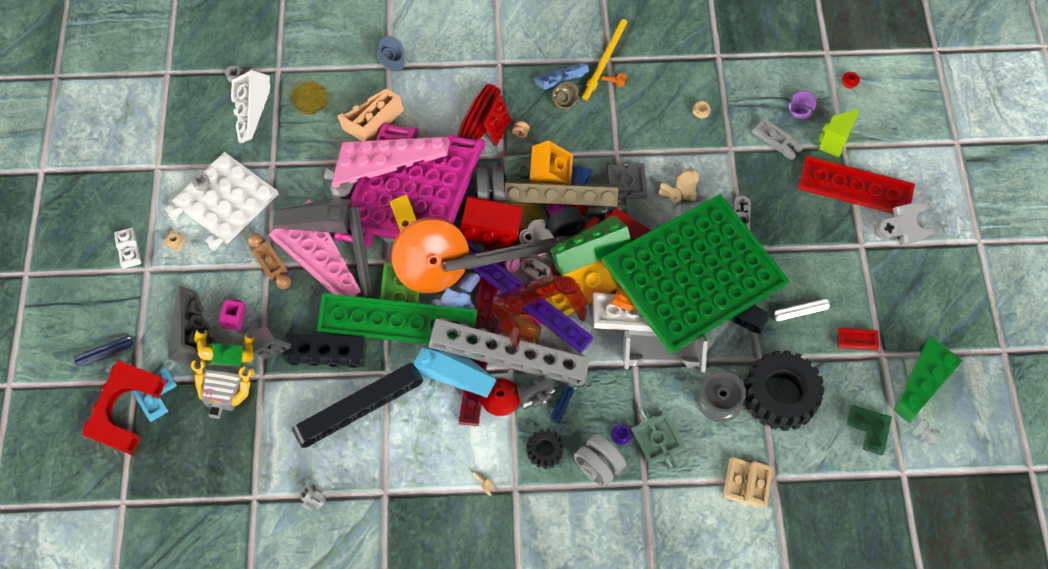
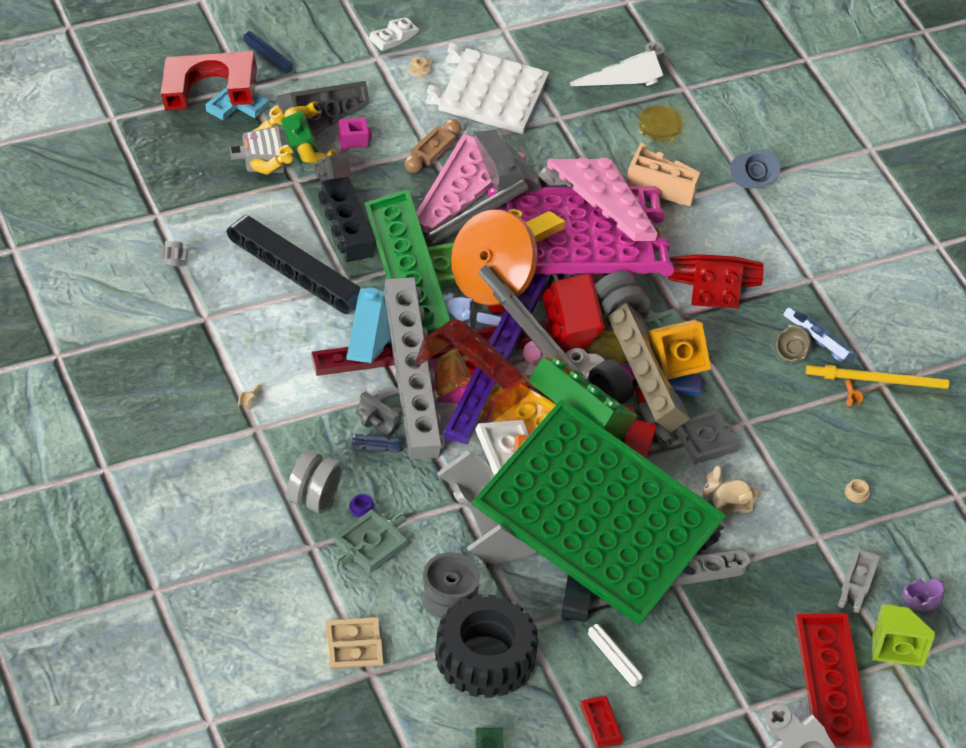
camera: 65 degrees right, 15 degrees down
(198, 177) = (499, 64): light grey bush -> none
(502, 405) = (356, 382): red dish -> none
(521, 129) = (723, 317): light nougat bush -> none
(548, 460) = (313, 427): black tyre -> none

